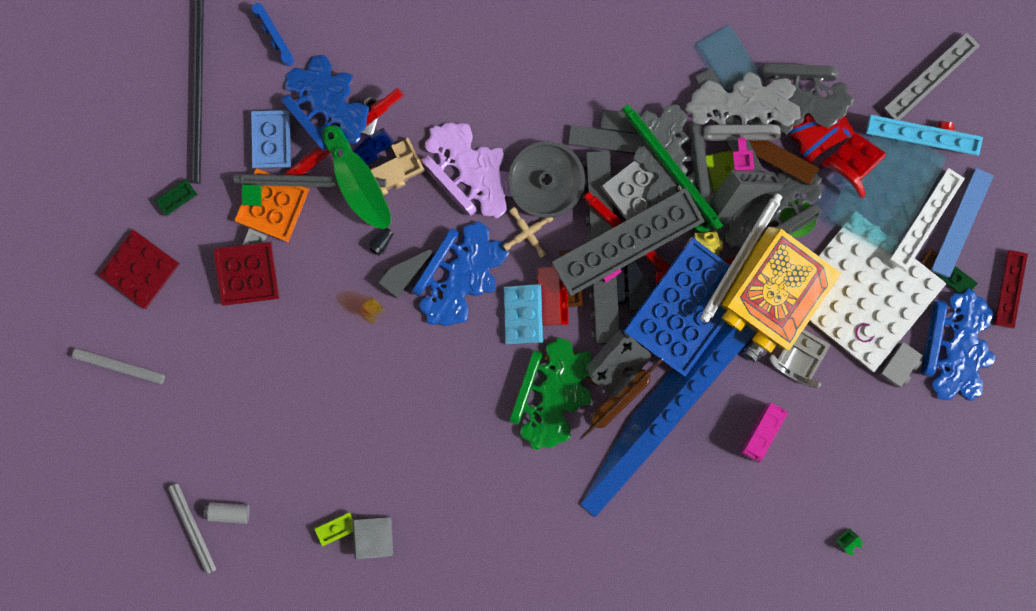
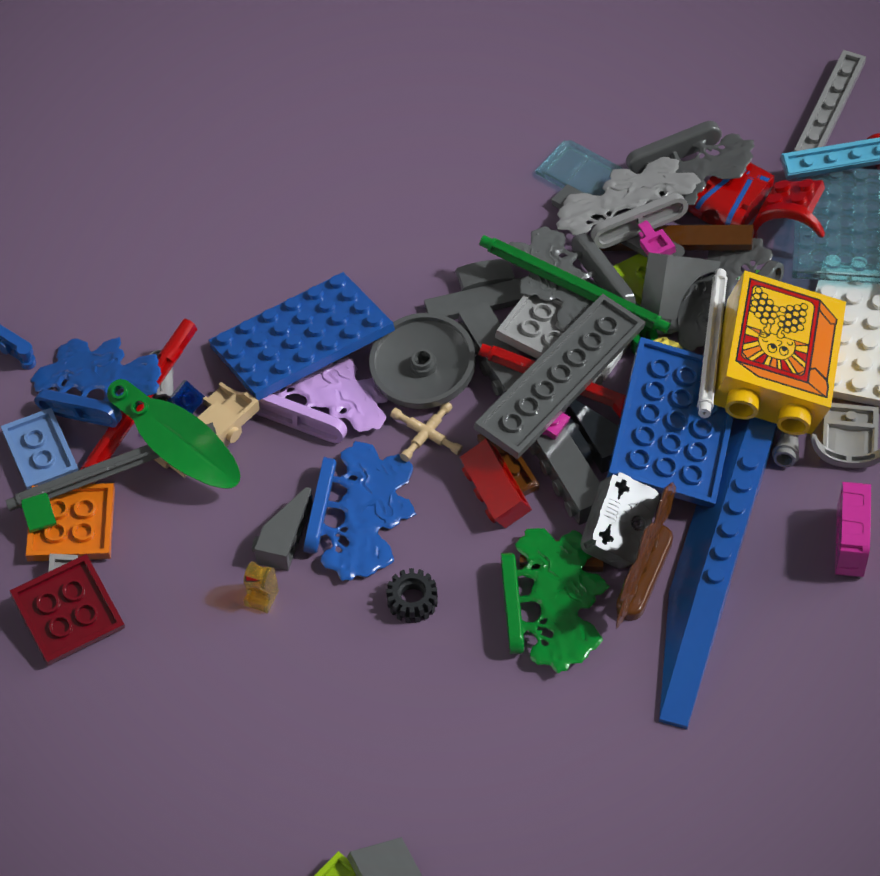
camera: 20 degrees left, 30 degrees down
(380, 242) = (236, 510): black cone -> none
(466, 342) = (412, 609): none -> black tyre
(475, 123) = (301, 335): none -> blue plate
(523, 314) = (466, 519): medium azure plate -> none

